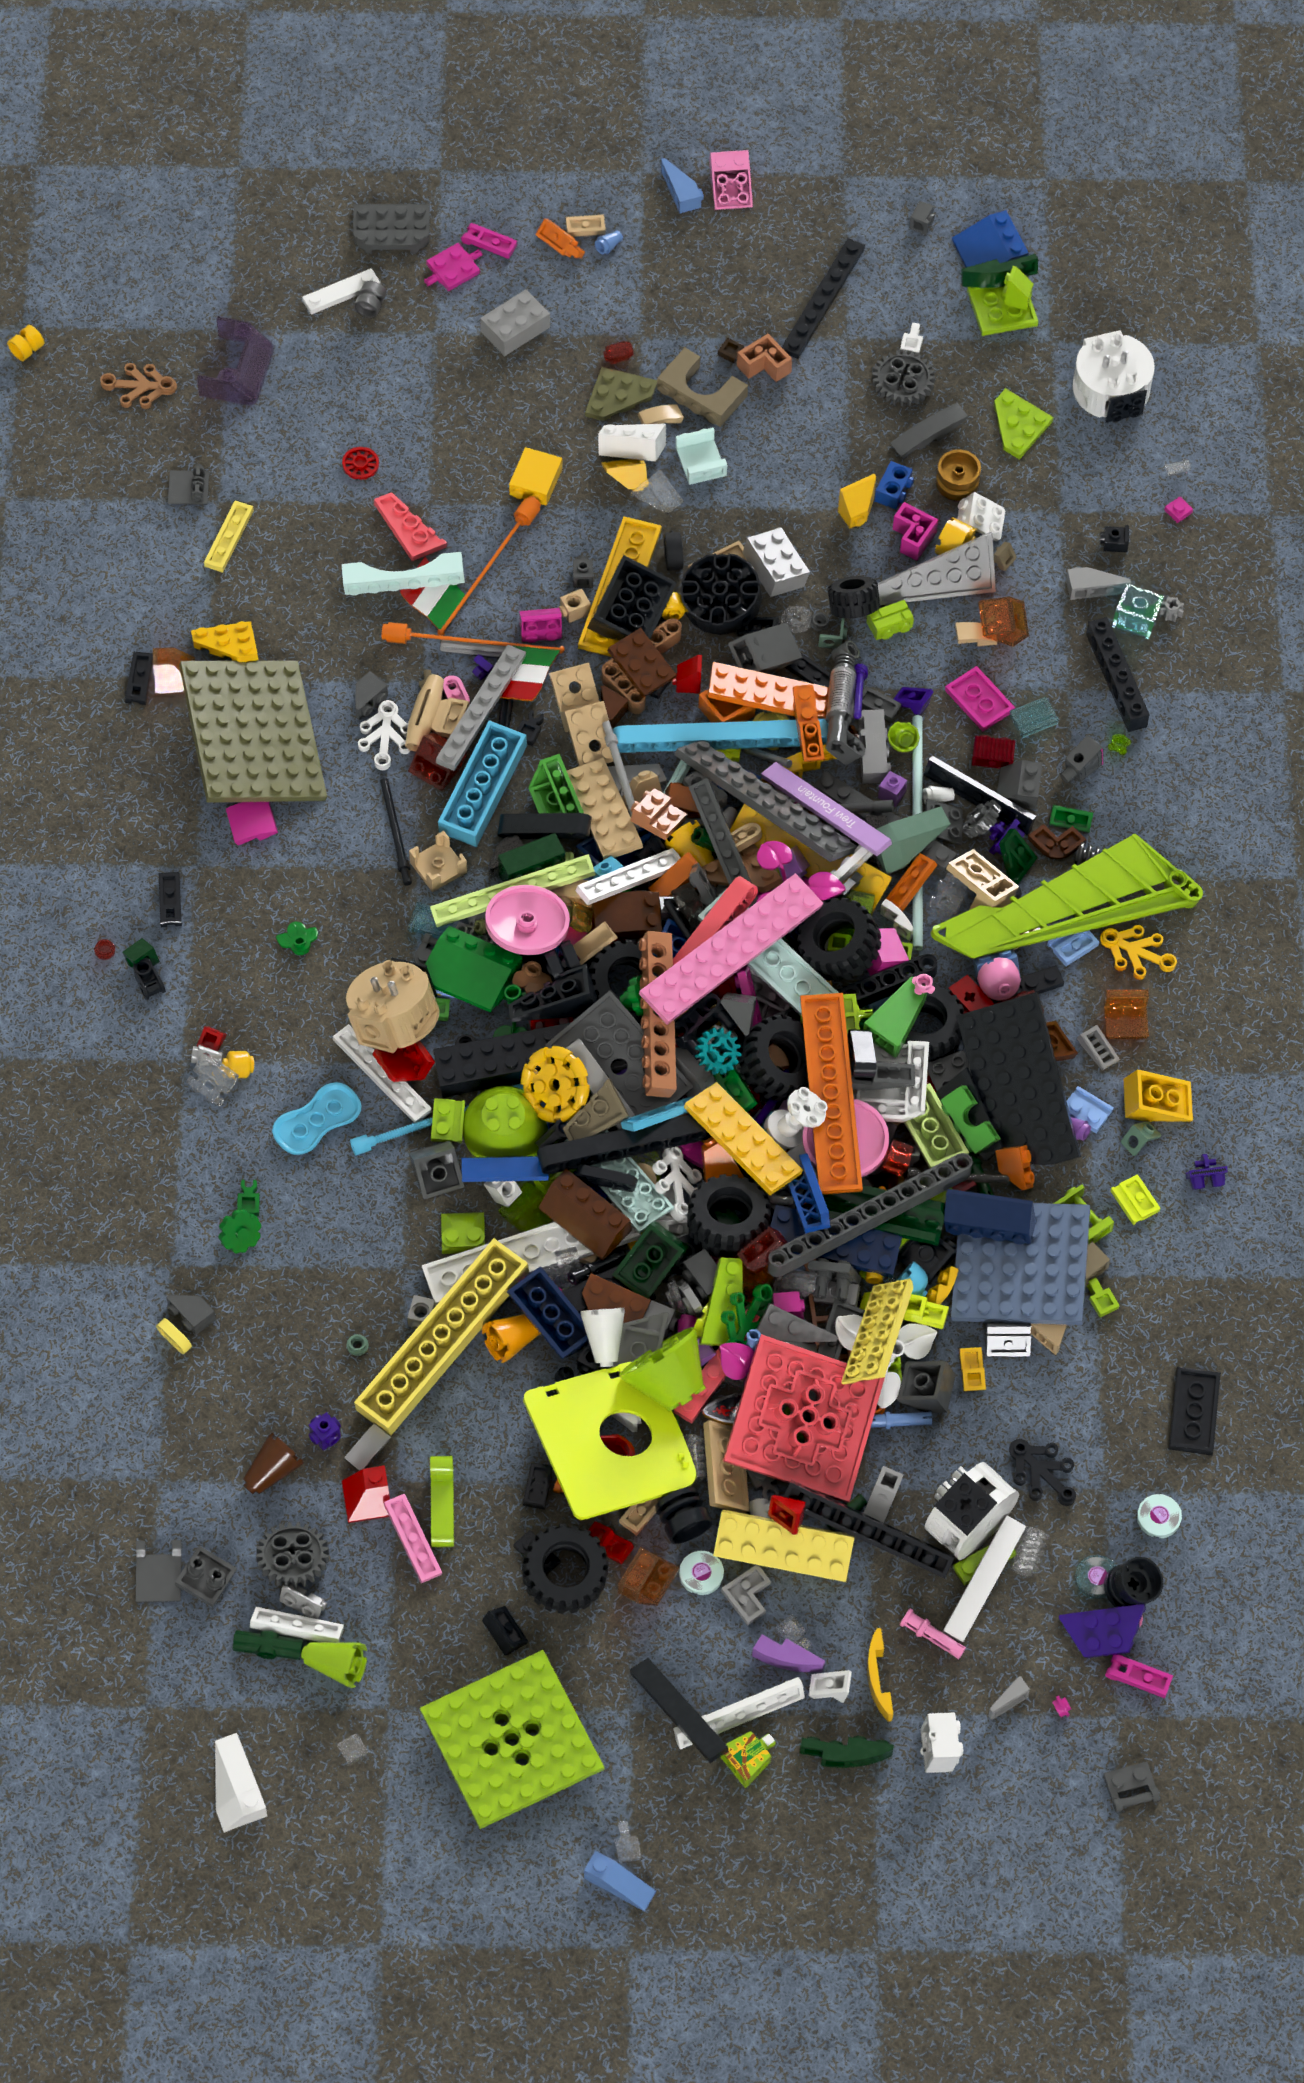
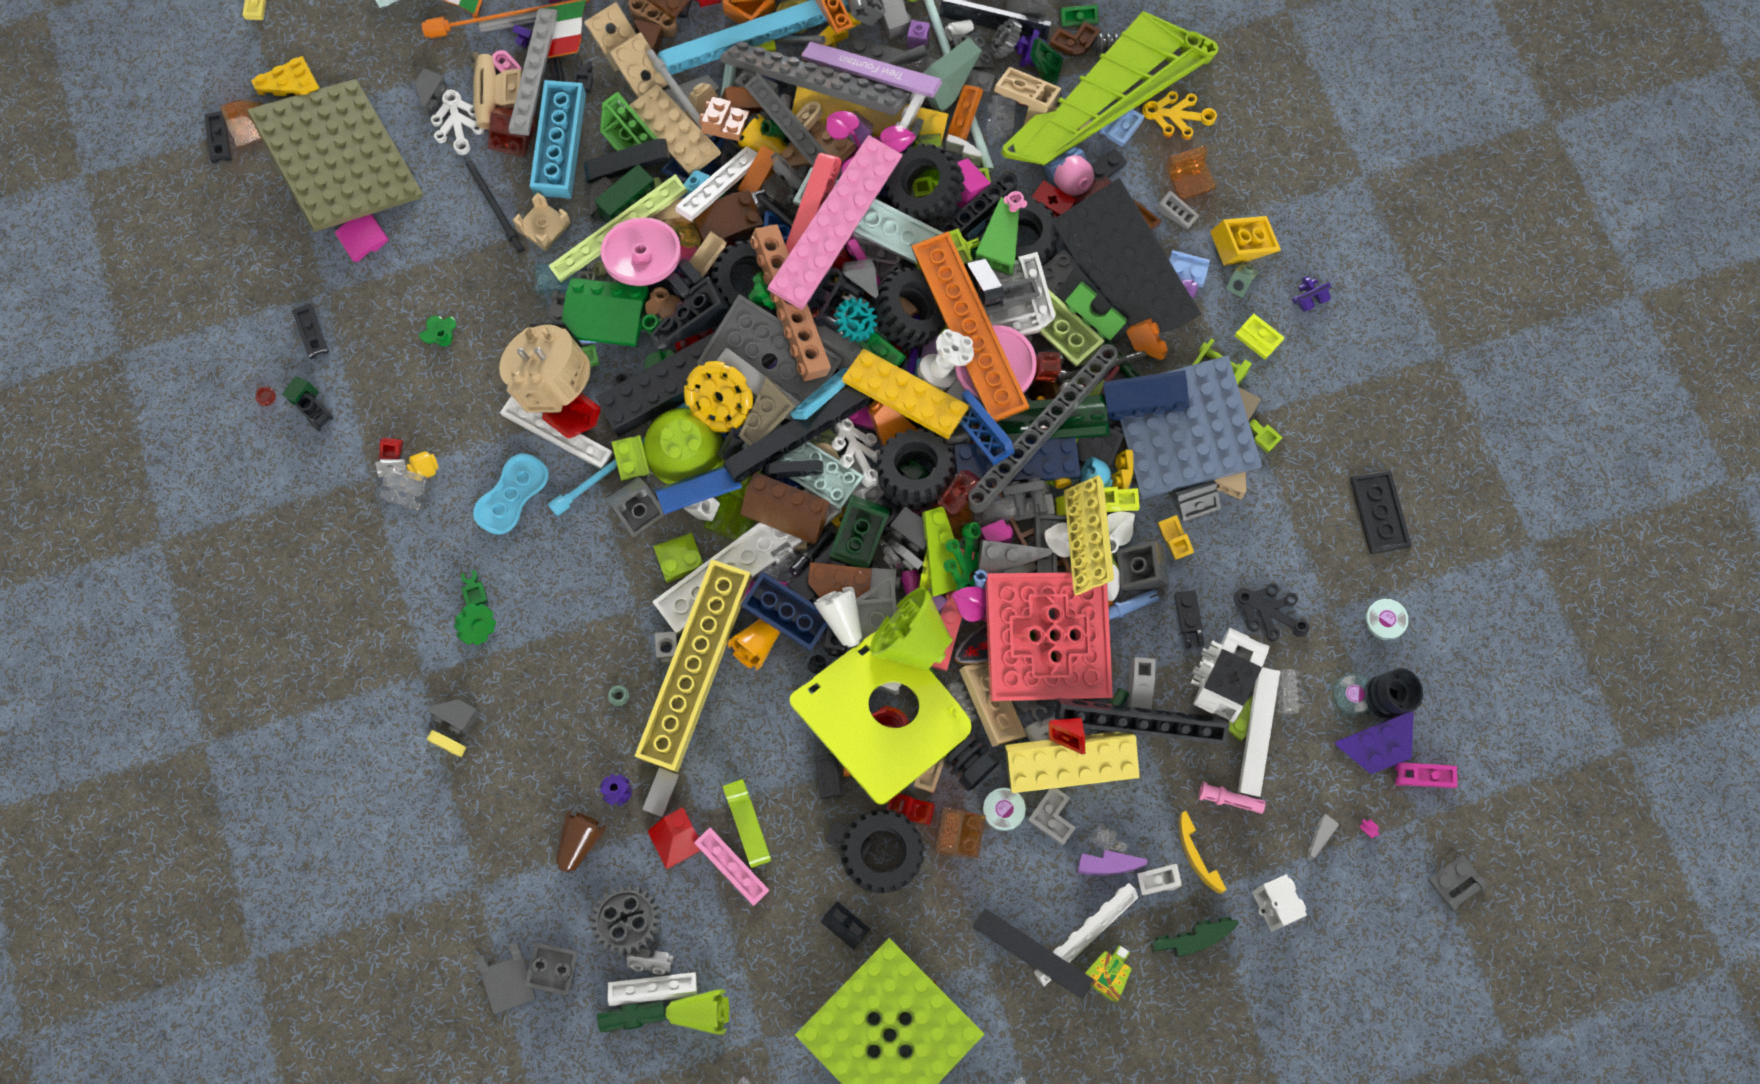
camera: 15 degrees left, 10 degrees up
(957, 1447) = (1189, 617): none -> black hinge

